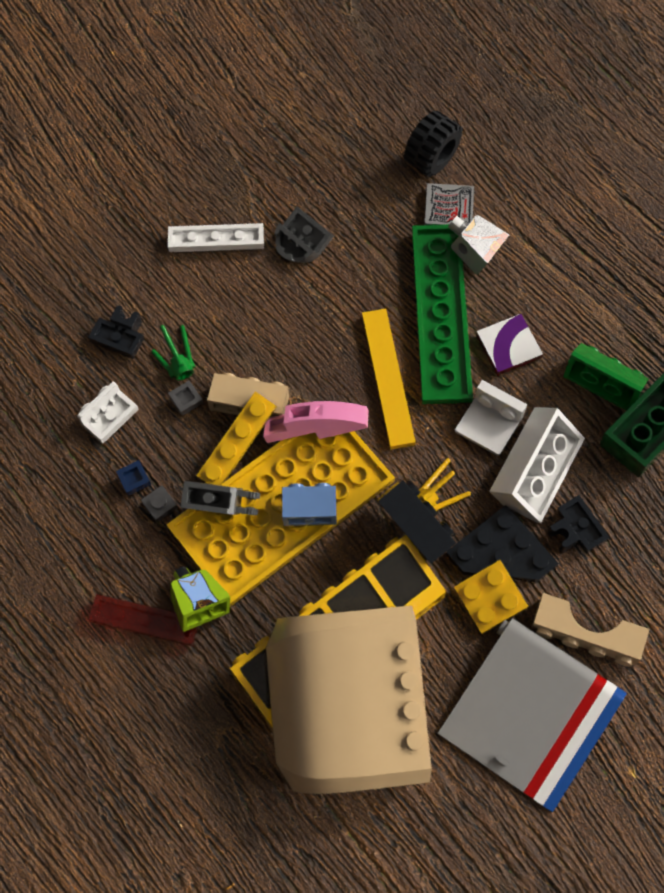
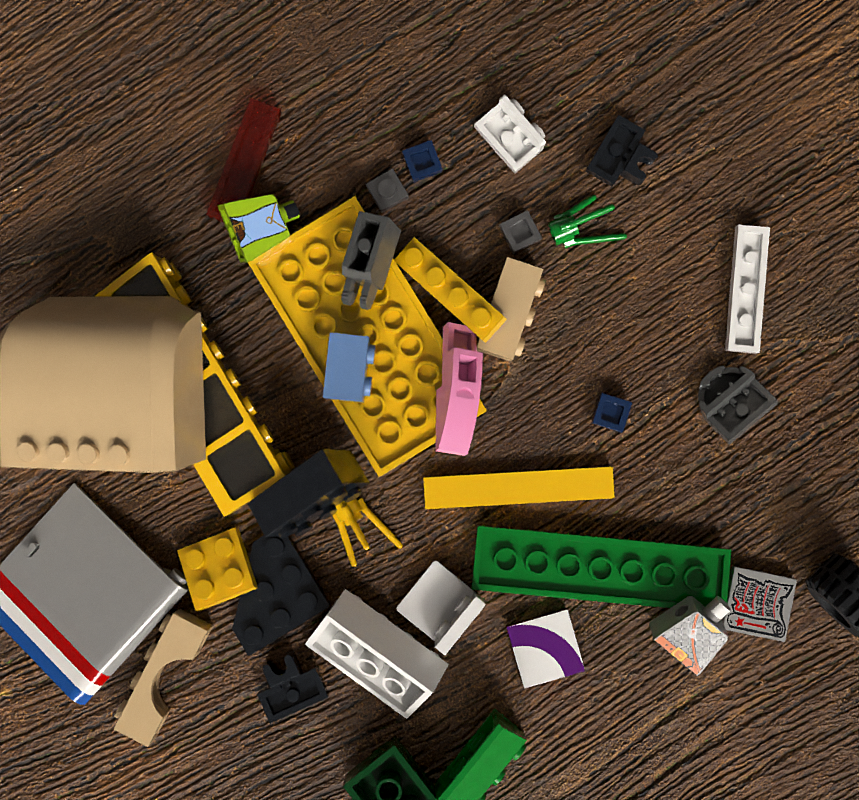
camera: 95 degrees right, 20 degrees up
(320, 317) = (611, 412): none -> dark blue plate

